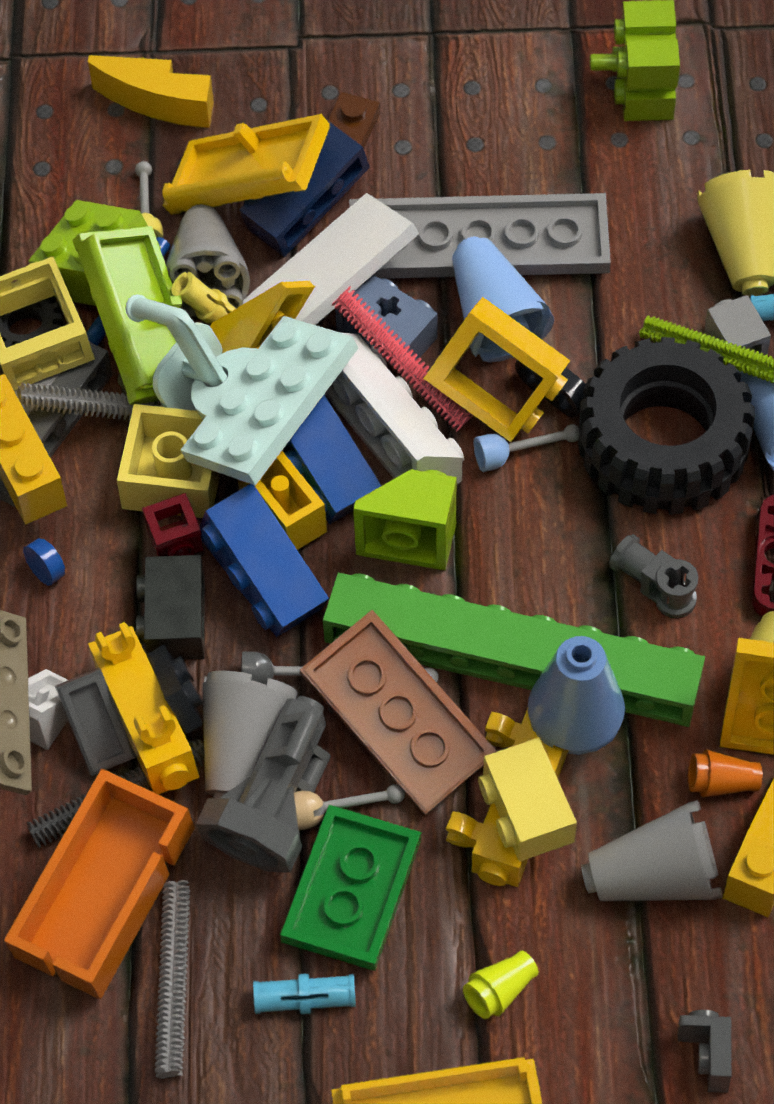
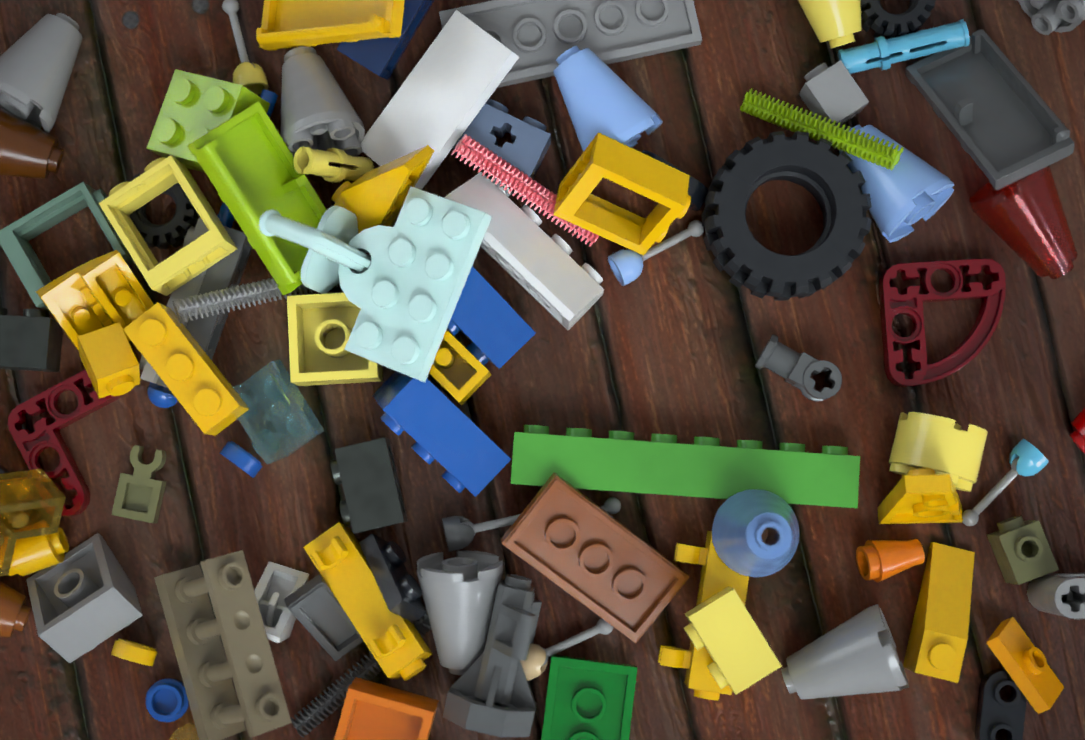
camera: 10 degrees left, 25 degrees up
(93, 525) = (278, 413): none -> clear light blue bracket
(175, 538) = (353, 413): dark red brick -> none
(408, 519) = (572, 362): lime slope -> none

